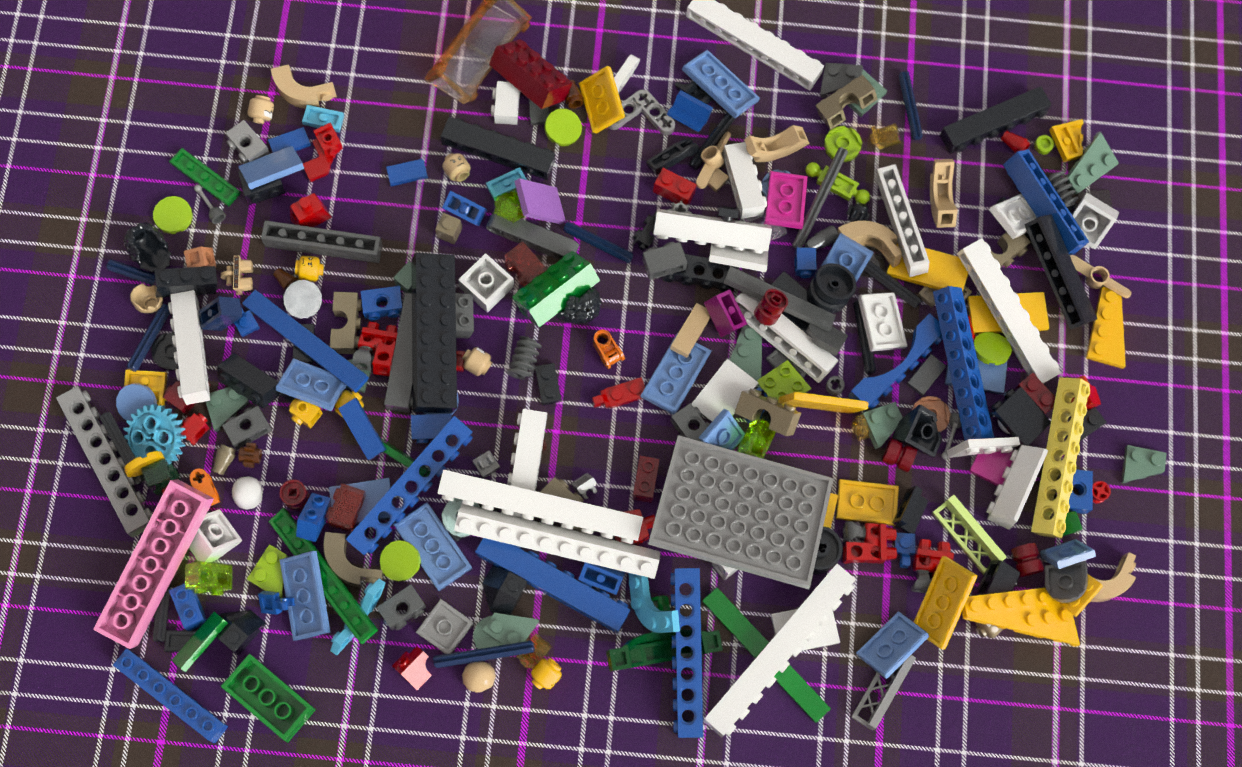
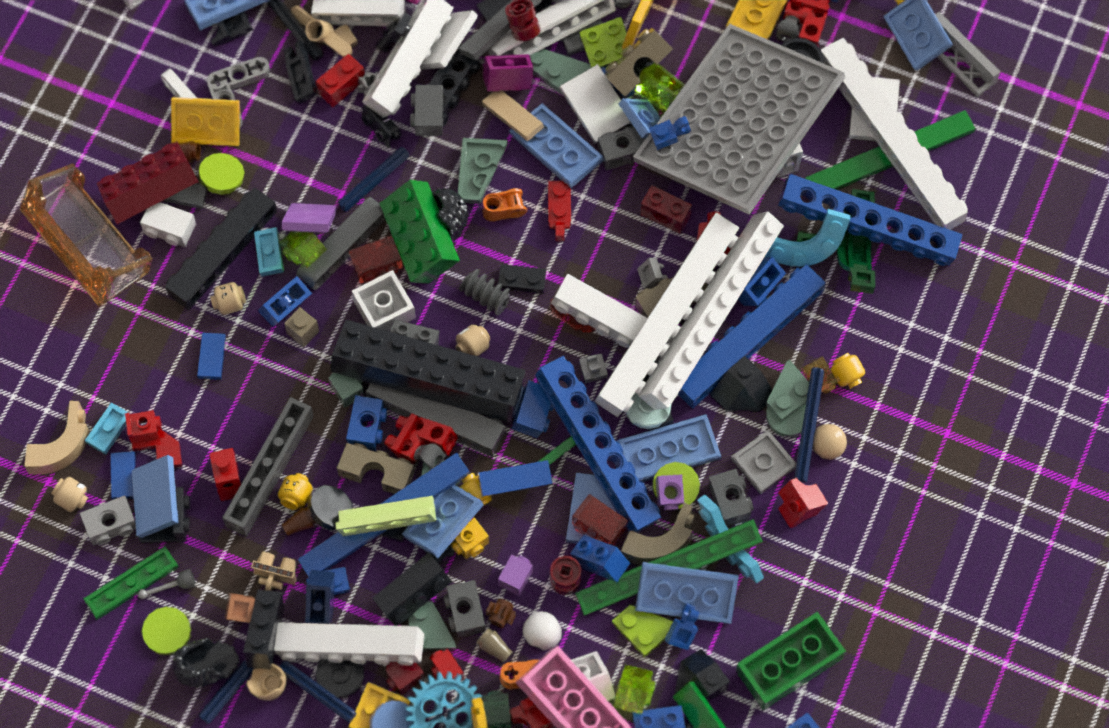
camera: 65 degrees left, 5 degrees down
(286, 457) = (515, 574): none -> medium lavender brick
(300, 340) = (386, 516): none -> yellowish green fence
(396, 555) = (676, 483): none -> medium lavender brick
(636, 317) = (478, 166): none -> sand green wing
(690, 111) = (253, 37): blue panel -> none
(706, 454) = (666, 133): none -> blue plate

